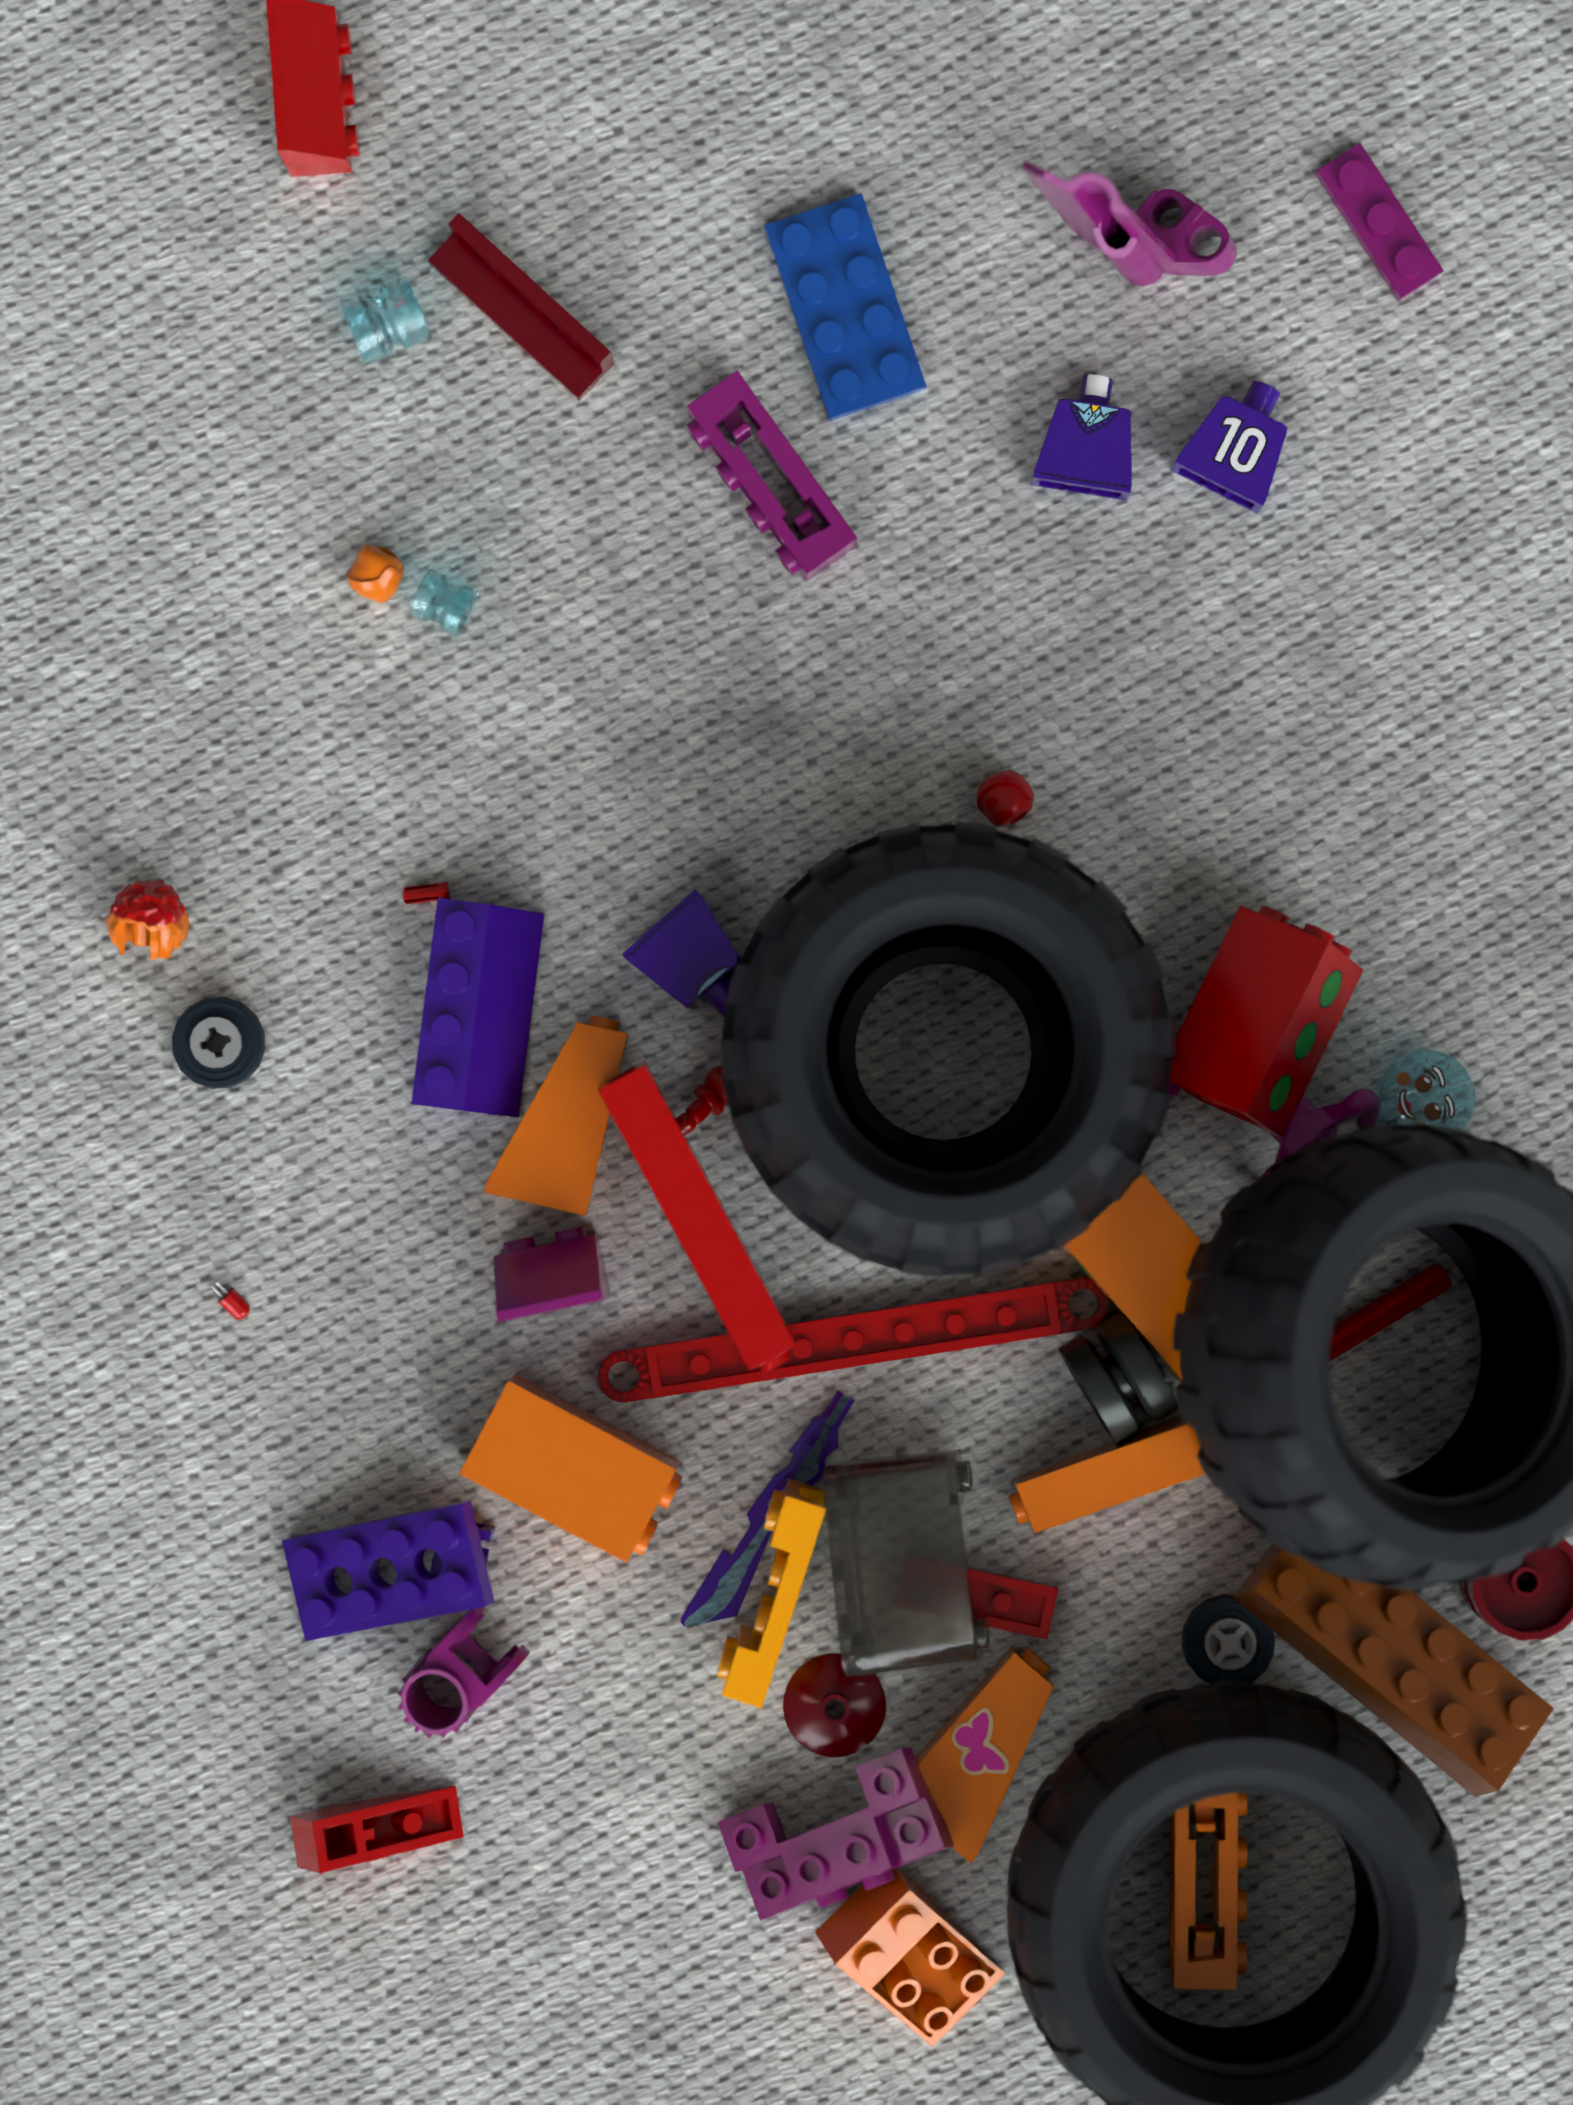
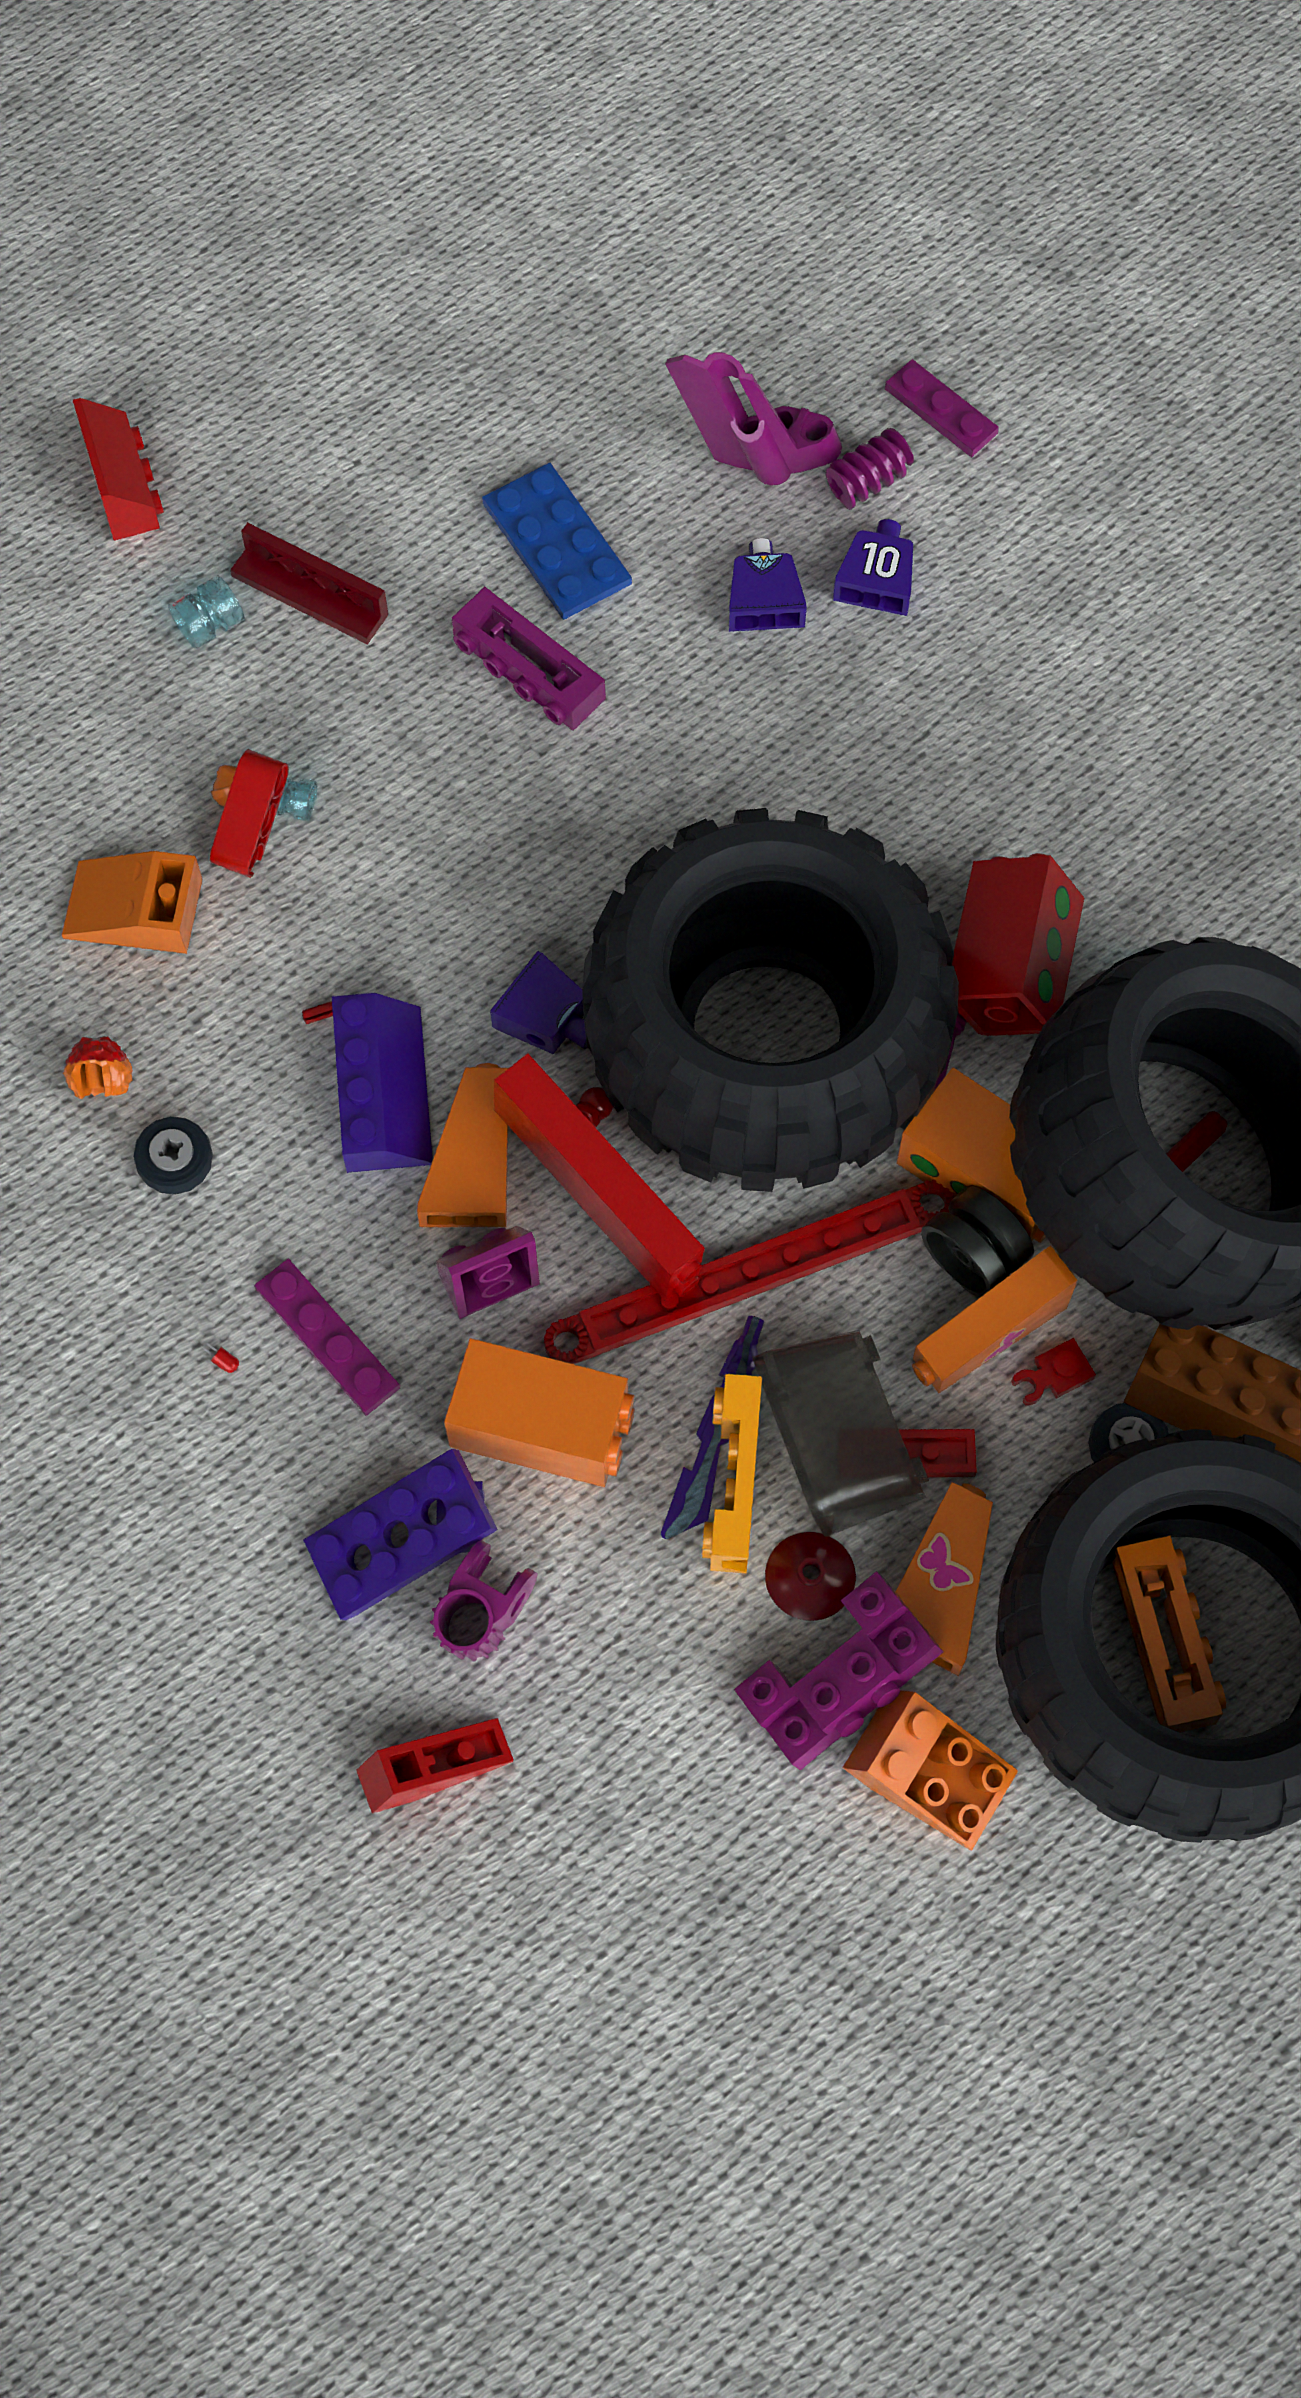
camera: 10 degrees left, 20 degrees down
(227, 703) = (135, 901): none -> orange slope
(354, 1304) = (327, 1337): none -> magenta plate
(386, 623) = (249, 812): none -> red beam
(1175, 1534) = (1059, 1369): none -> red plate
(1261, 298) = (868, 466): none -> magenta piece

